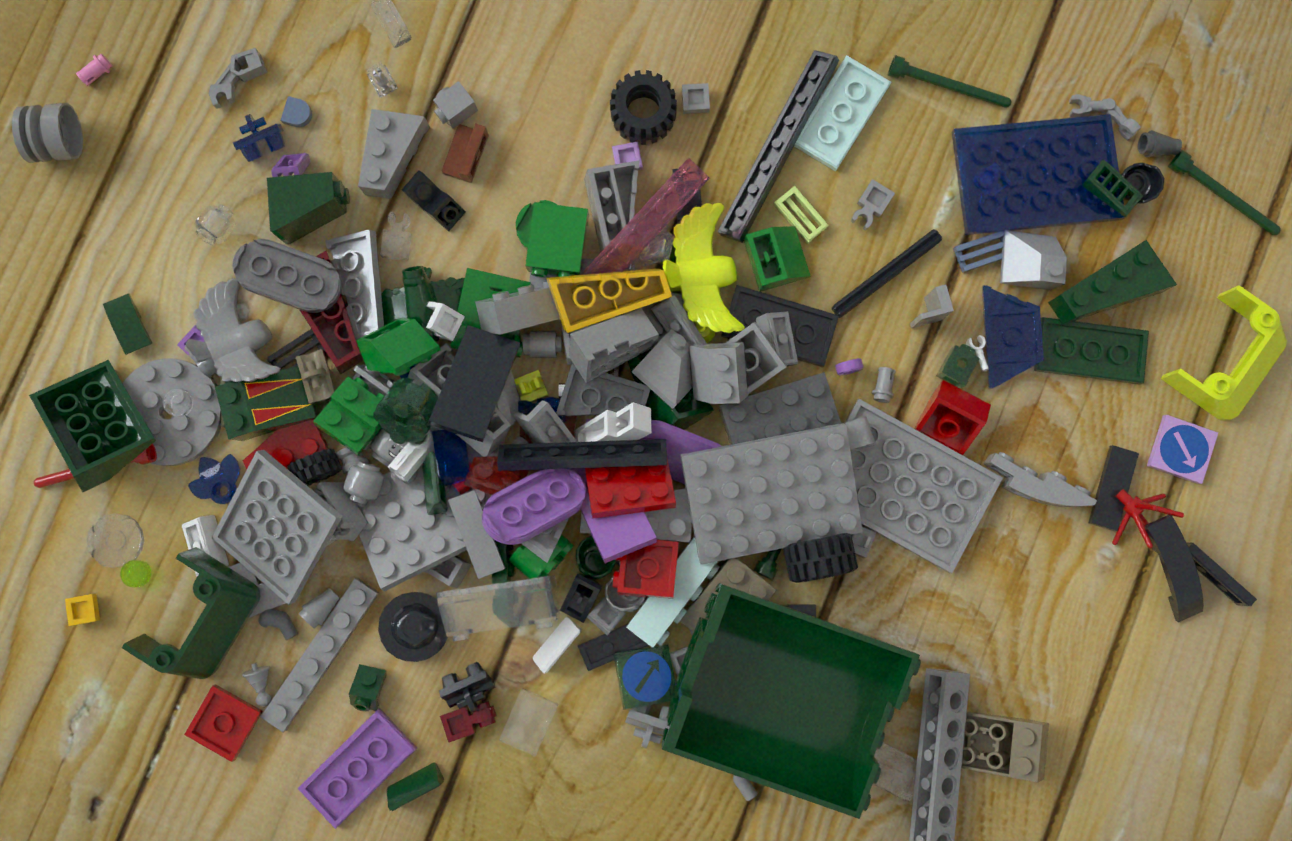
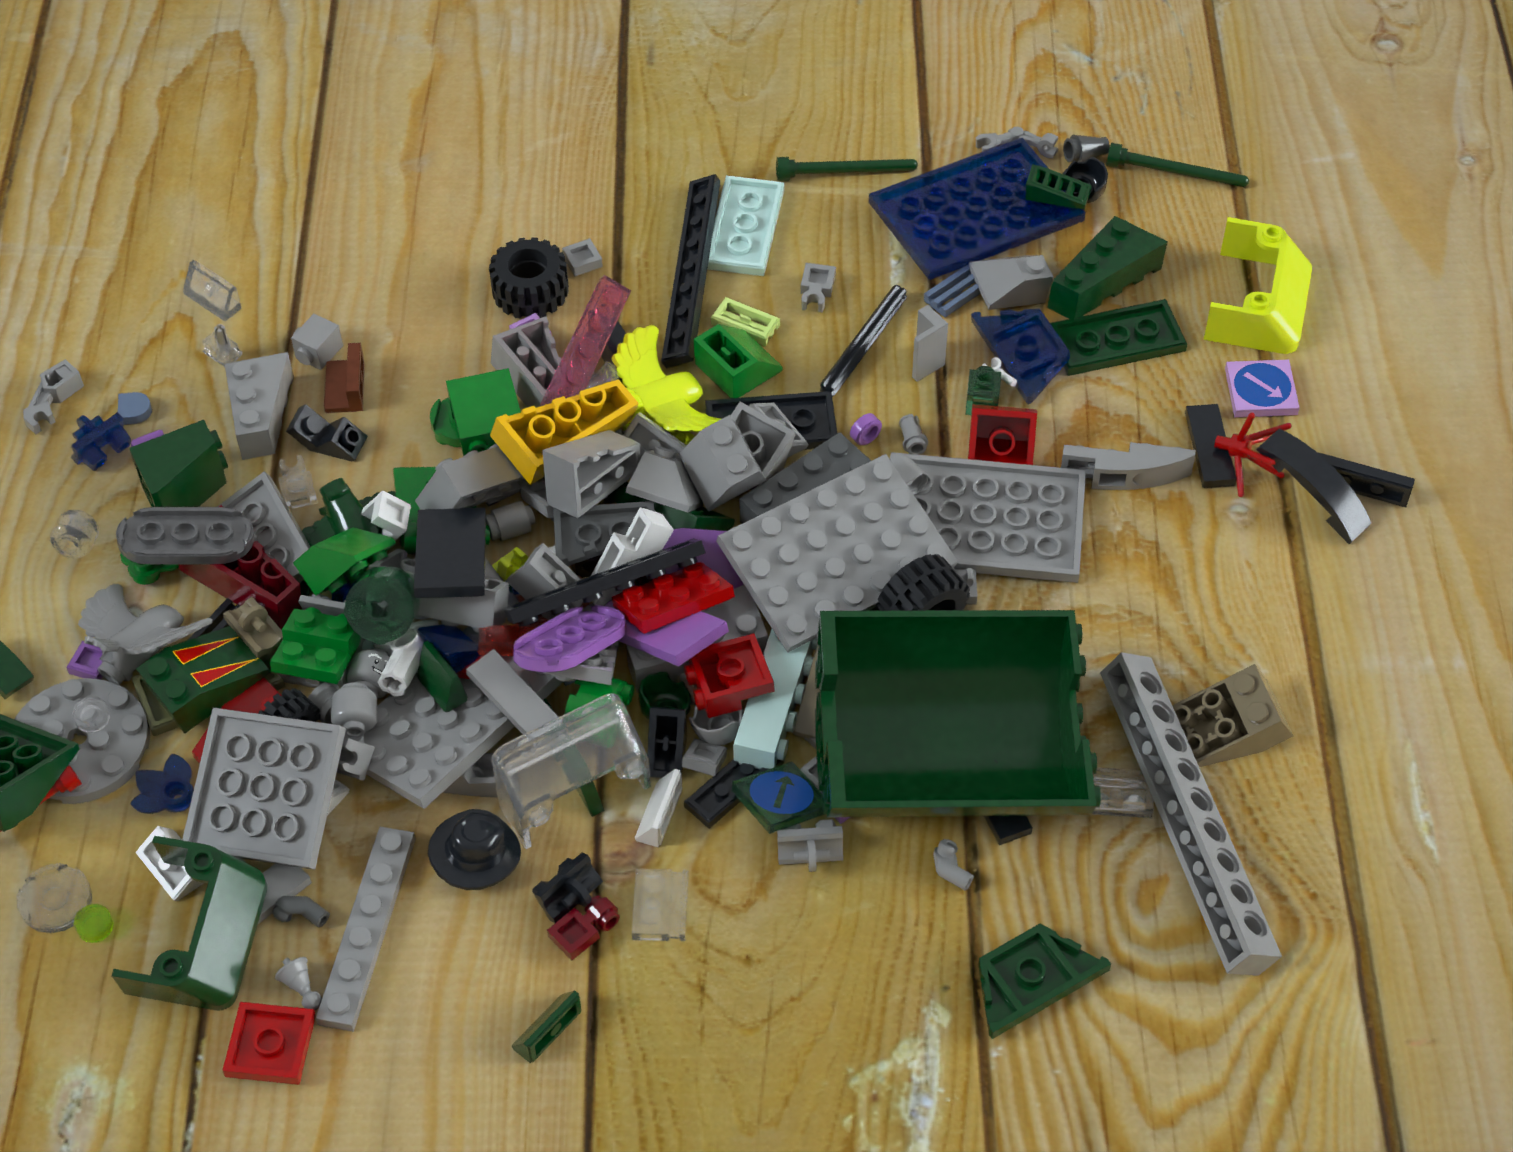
camera: 25 degrees left, 30 degrees down
(82, 609) = (36, 983): yellow plate -> none
(319, 608) = (344, 876): light grey cone -> none
(357, 768) = (463, 1036): medium lavender tile -> none
(366, 688) = (442, 940): dark green bracket -> none

